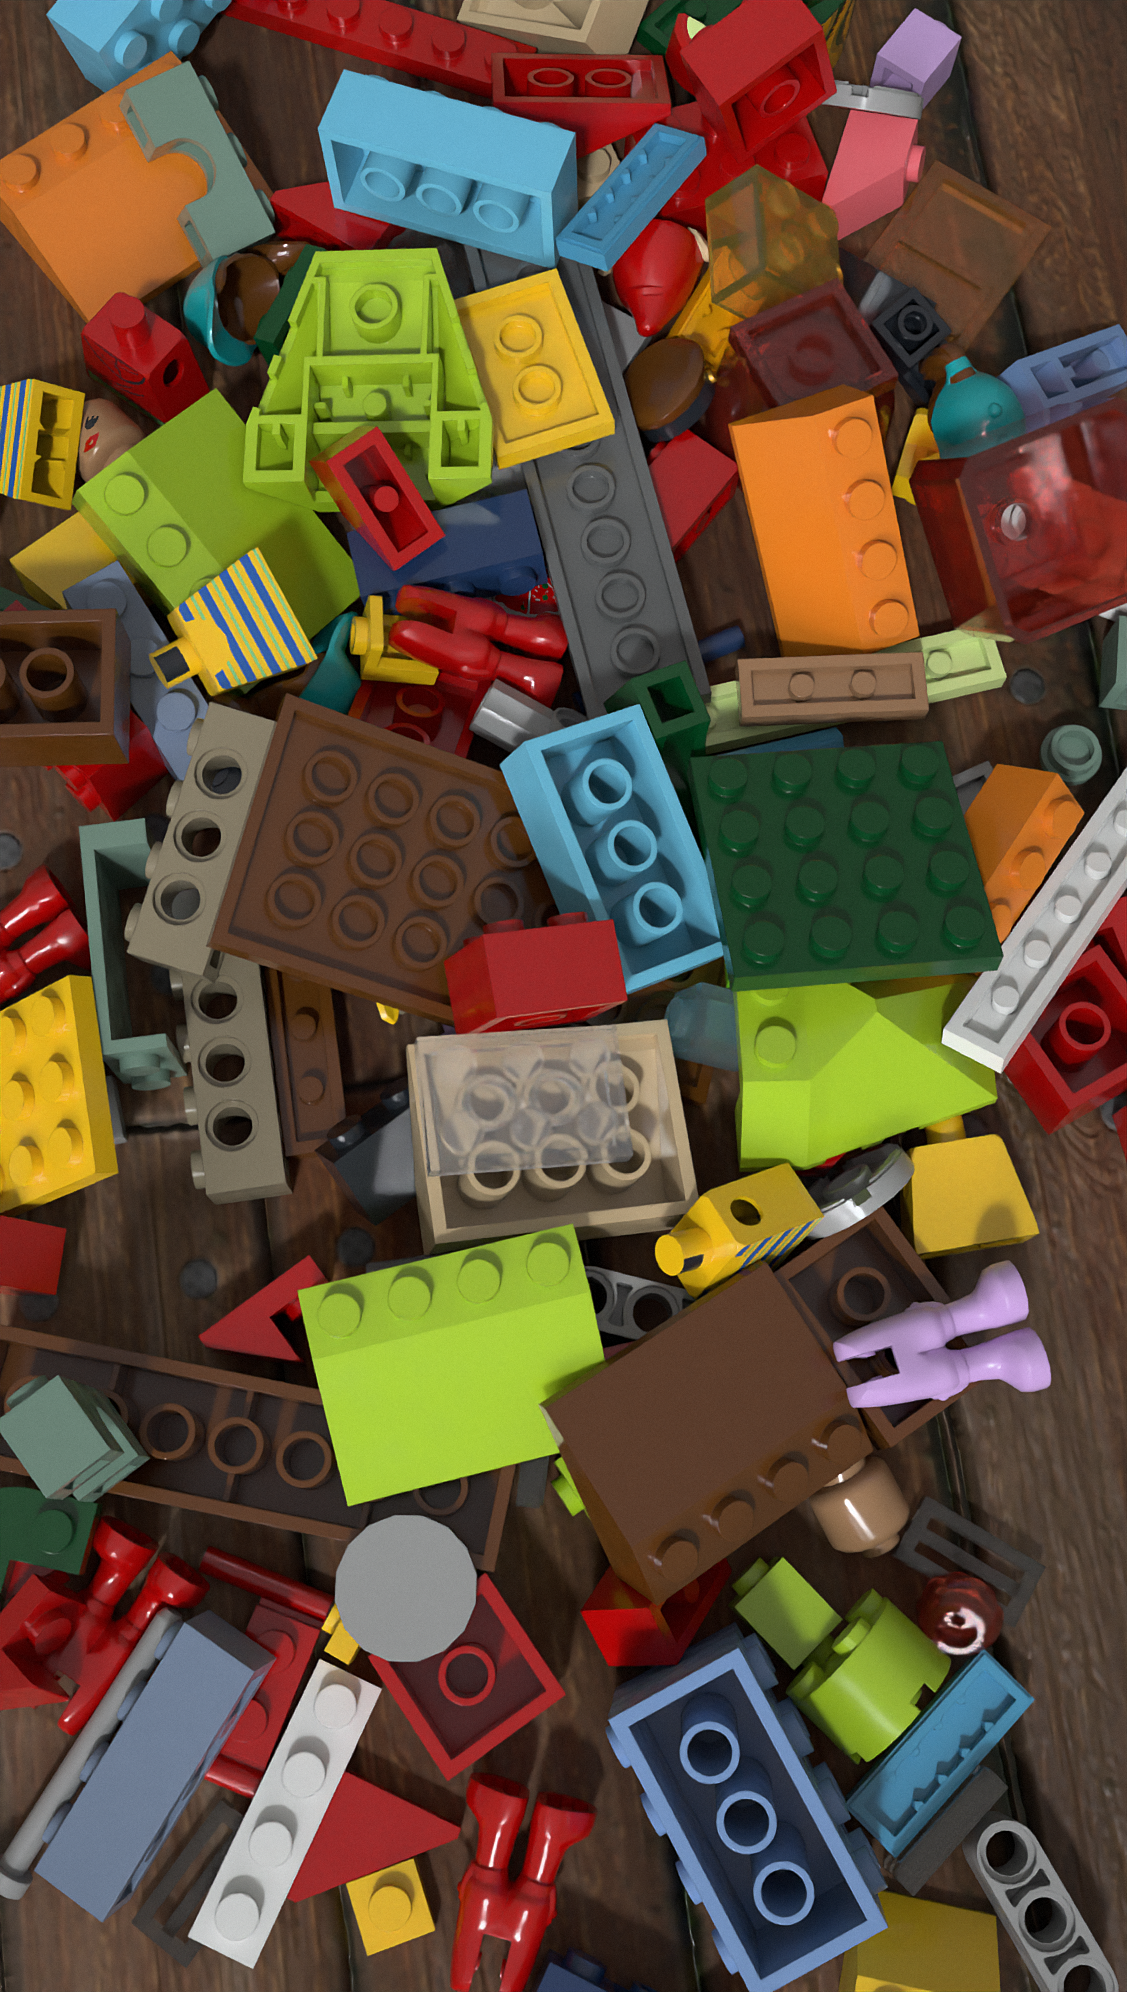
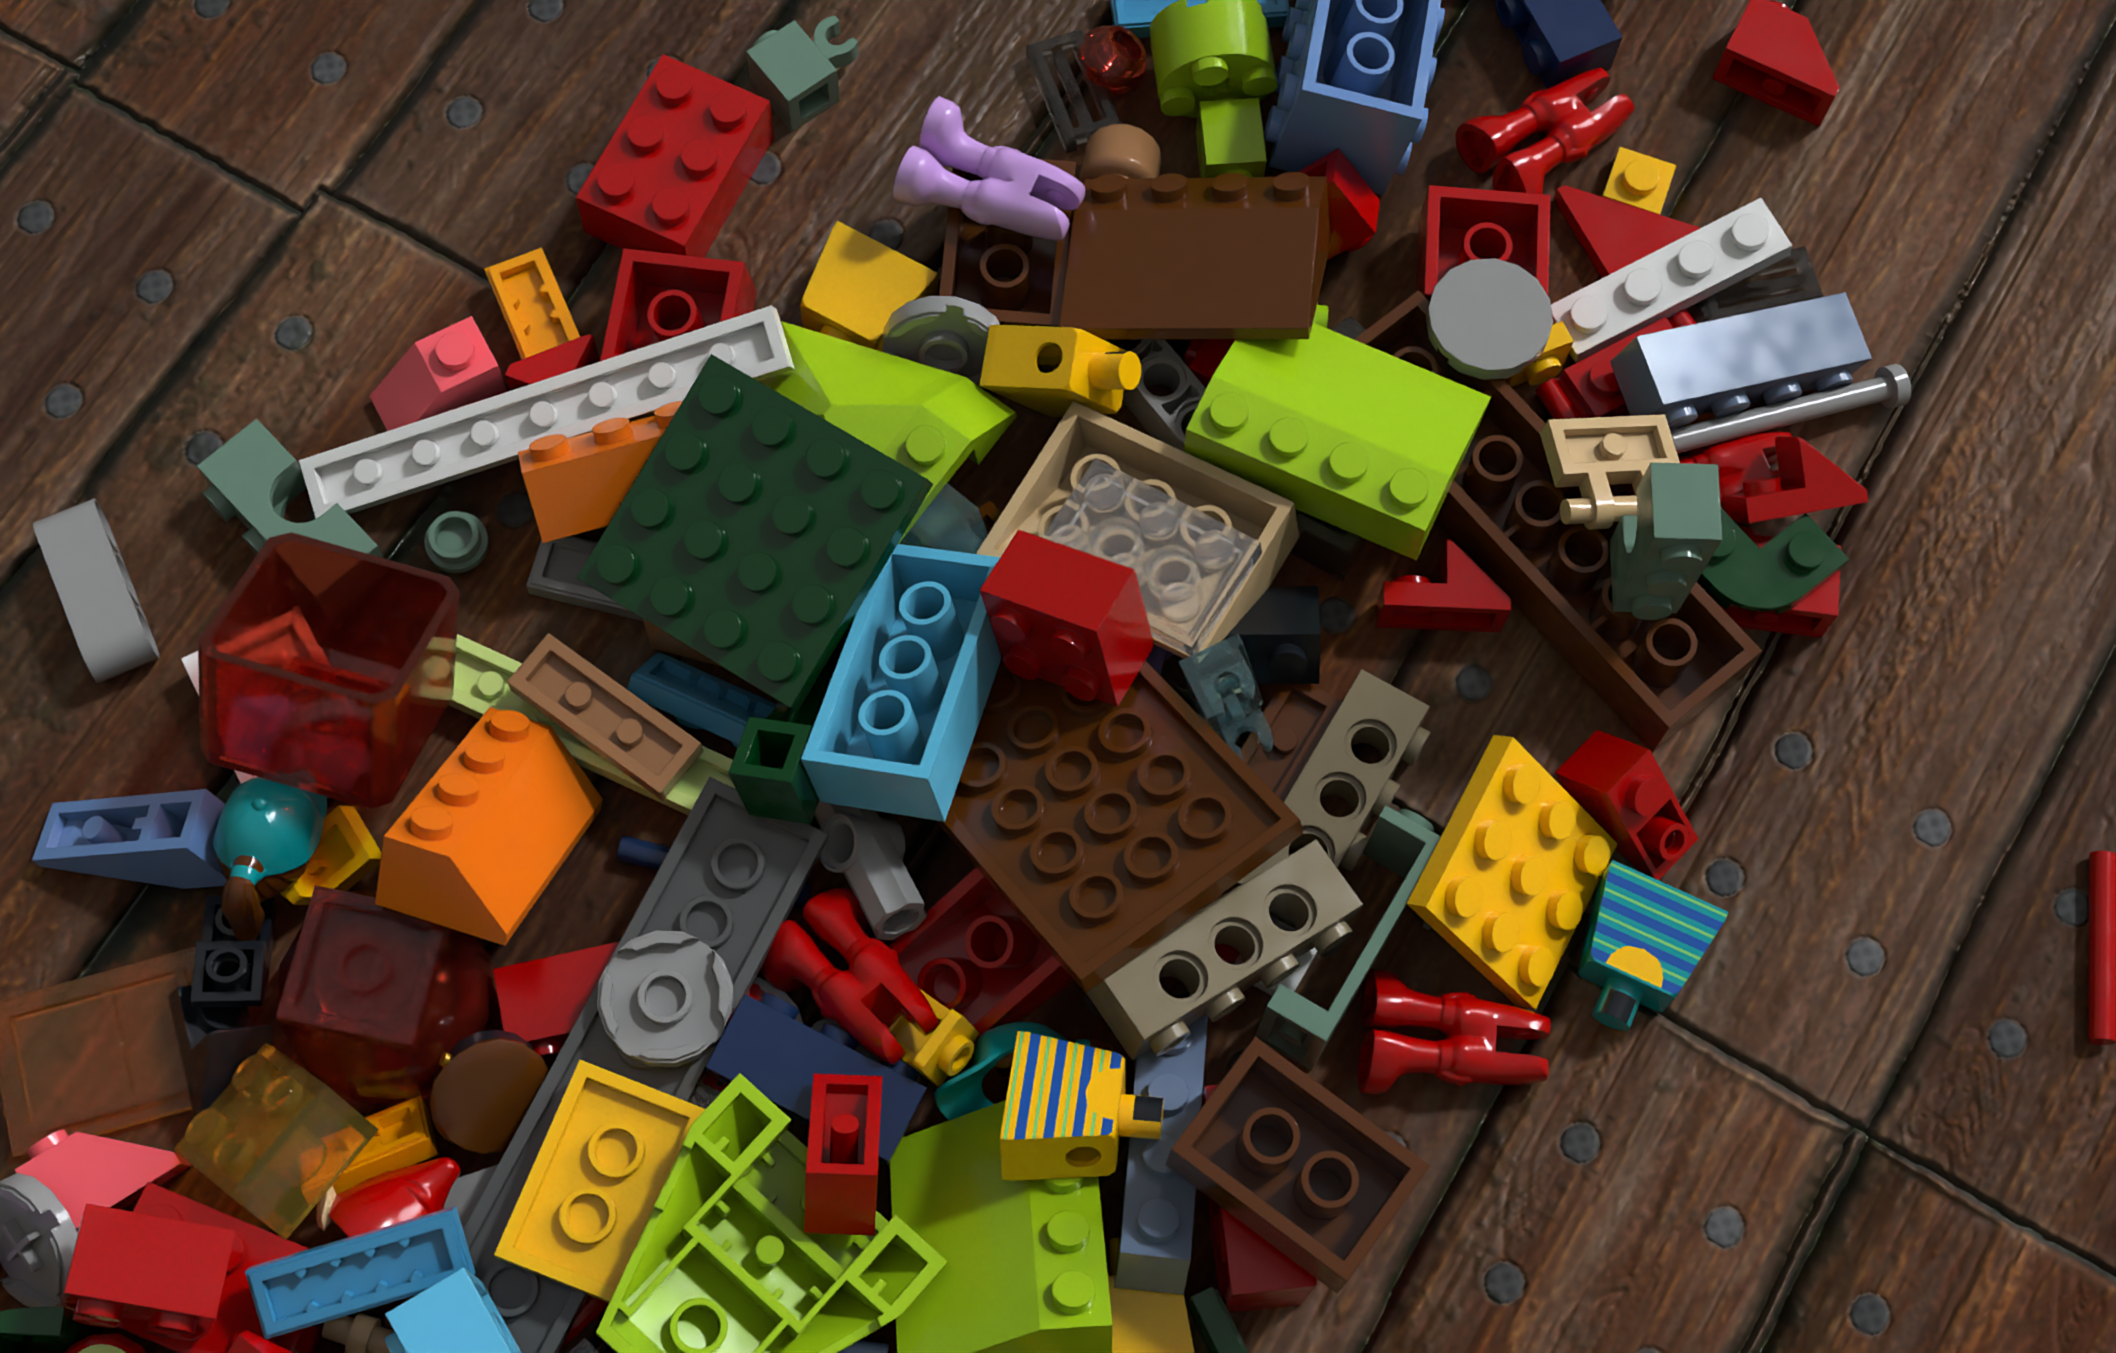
camera: 140 degrees left, 5 degrees down
(201, 1536) = (1601, 454): none -> tan plate
(374, 1041) = (1227, 692): none -> clear light blue hinge
(597, 518) = (665, 999): none -> light grey tile

